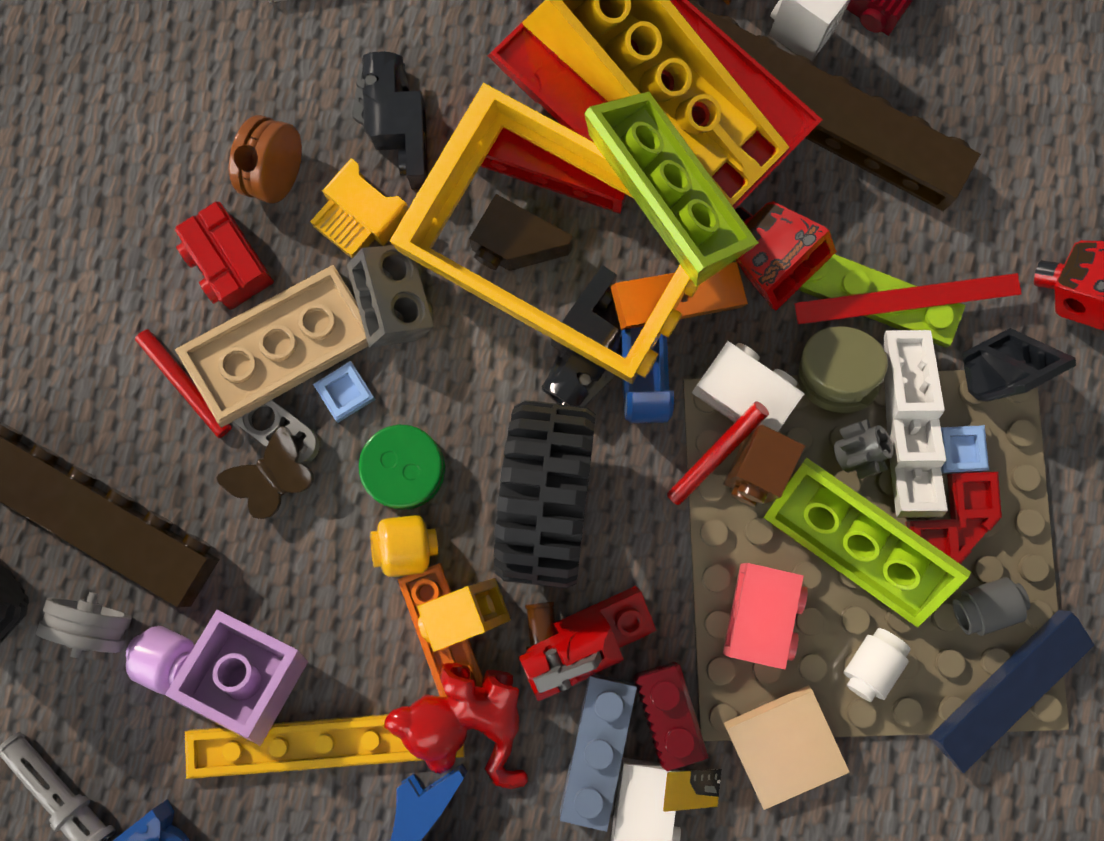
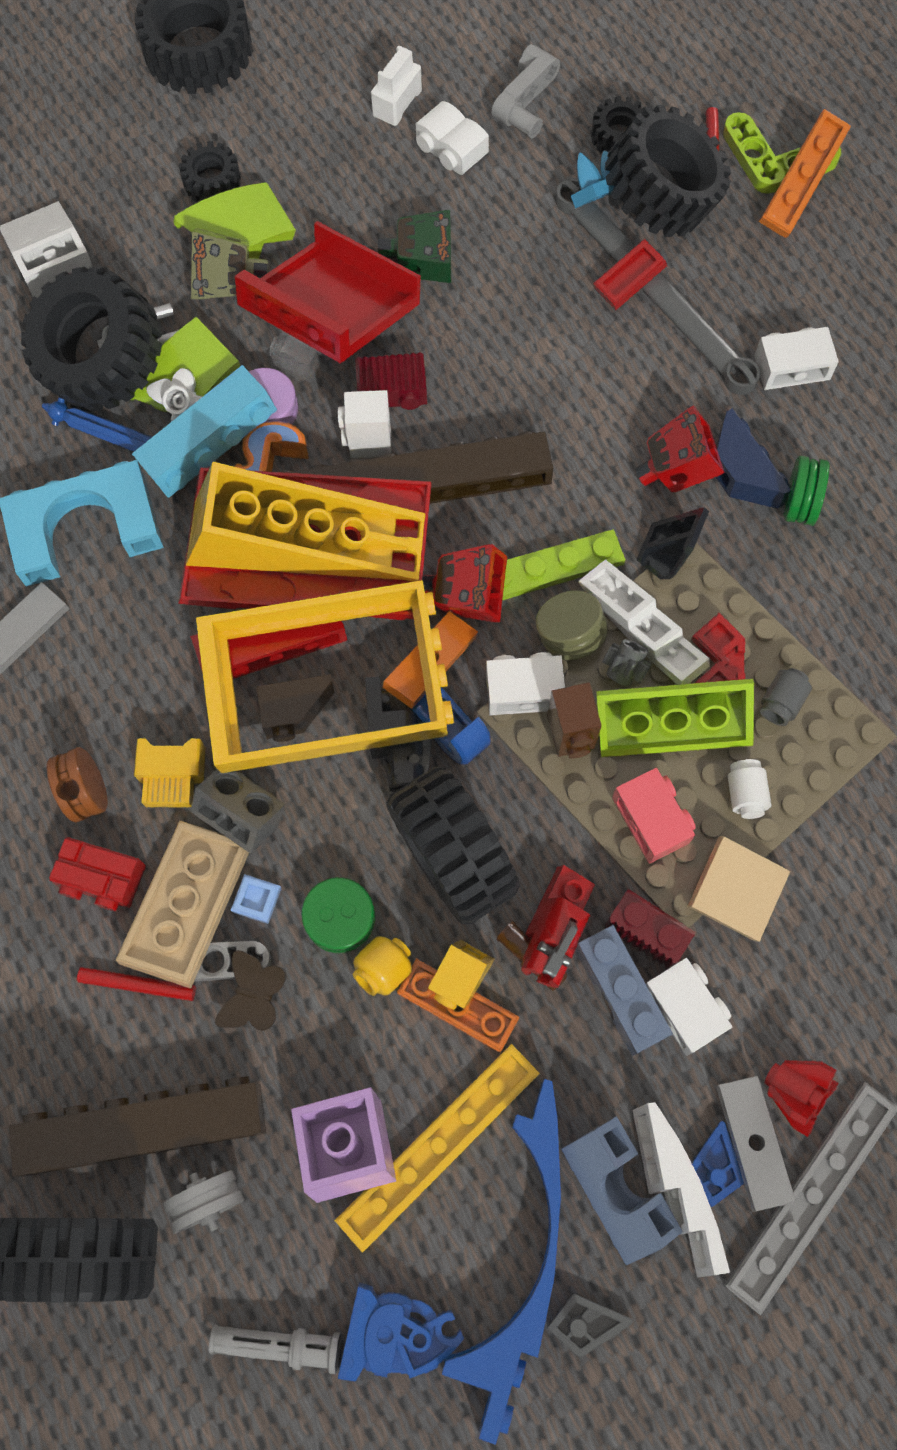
camera: 40 degrees left, 10 degrees down
(157, 657) = (275, 1183): lavender head -> none
(392, 113) = (141, 690): black plate -> none
(438, 725) = (506, 1061): red animal -> none
(669, 184) = (371, 589): lime slope -> none
(691, 790) = (703, 964): yellow sticker -> none
(718, 453) = (538, 737): red bar -> none
(907, 298) = (574, 552): red sticker -> none
(965, 449) = (688, 615): light blue tile -> none
(1012, 690) = (842, 739): dark blue slope -> none

